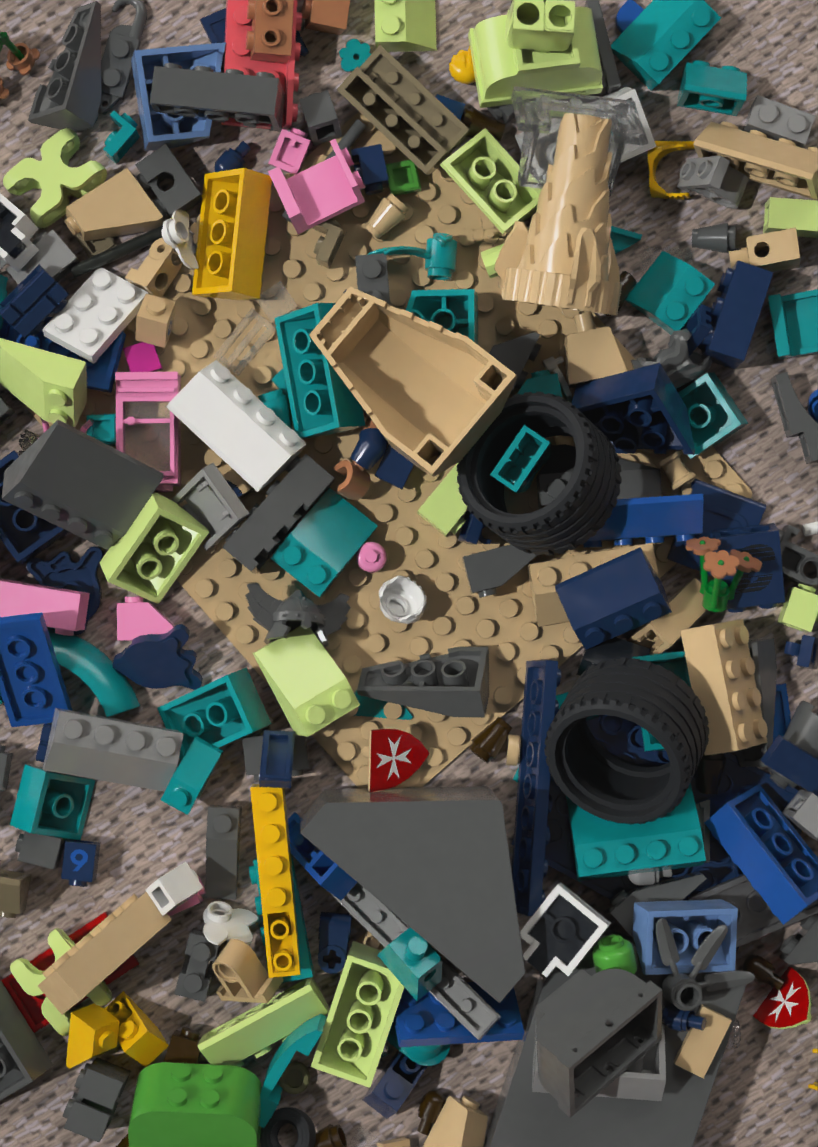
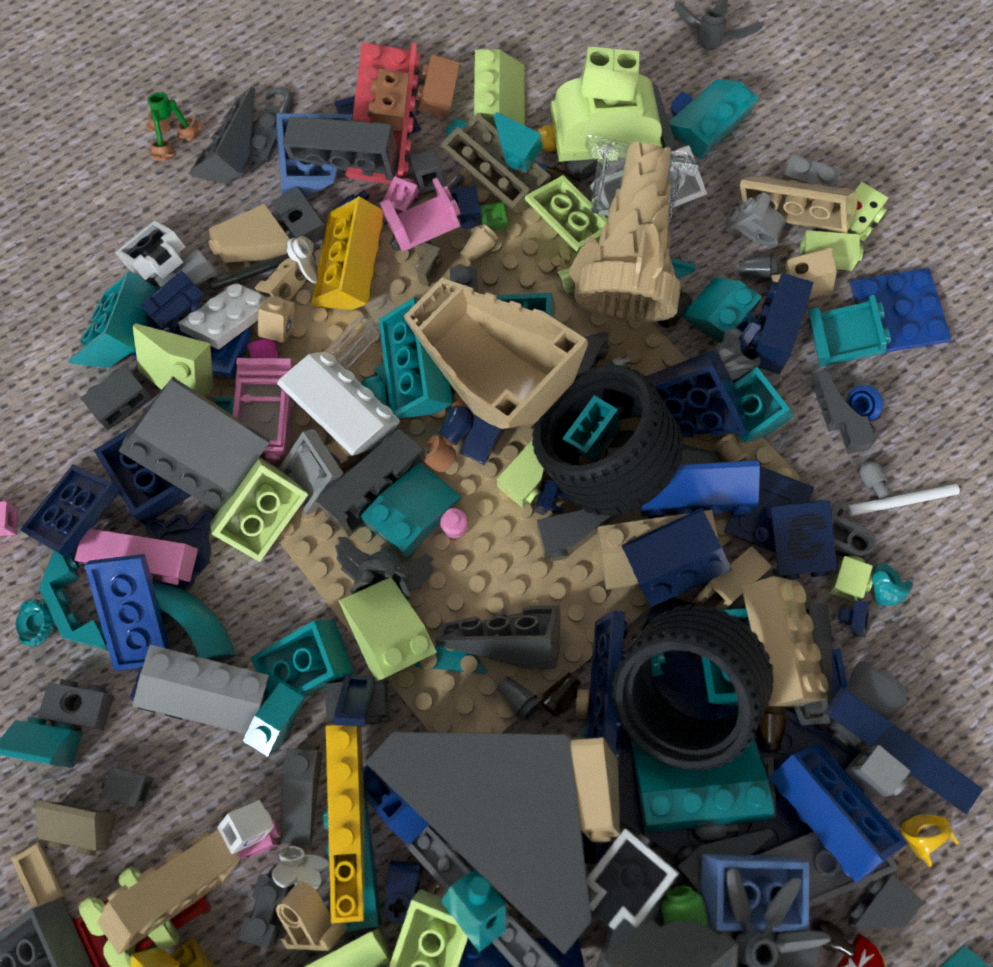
camera: 10 degrees right, 15 degrees down
(52, 803) = (143, 743): teal slope -> none
(54, 177) = (202, 212): yellowish green piece -> none
(80, 862) = (162, 801): dark blue brick -> none
(121, 141) = (264, 187): teal bracket -> none
(139, 619) = (243, 577): bright pink slope -> none
(160, 660) = (254, 611): dark blue tile -> none
(392, 757) = (466, 704): red shield -> none
(402, 600) = (480, 559): white hair -> none
(429, 92) = (518, 142): none -> teal slope
(439, 255) = (522, 272): teal plant -> none
(446, 747) = (519, 699): none -> dark grey cone
(529, 848) = (596, 788): none -> tan slope
(591, 352) = (653, 348): tan torso -> none
(654, 156) = (709, 202): yellow helmet -> none
(712, 88) = (752, 154): teal slope -> none
(717, 592) = (773, 556): plant -> none

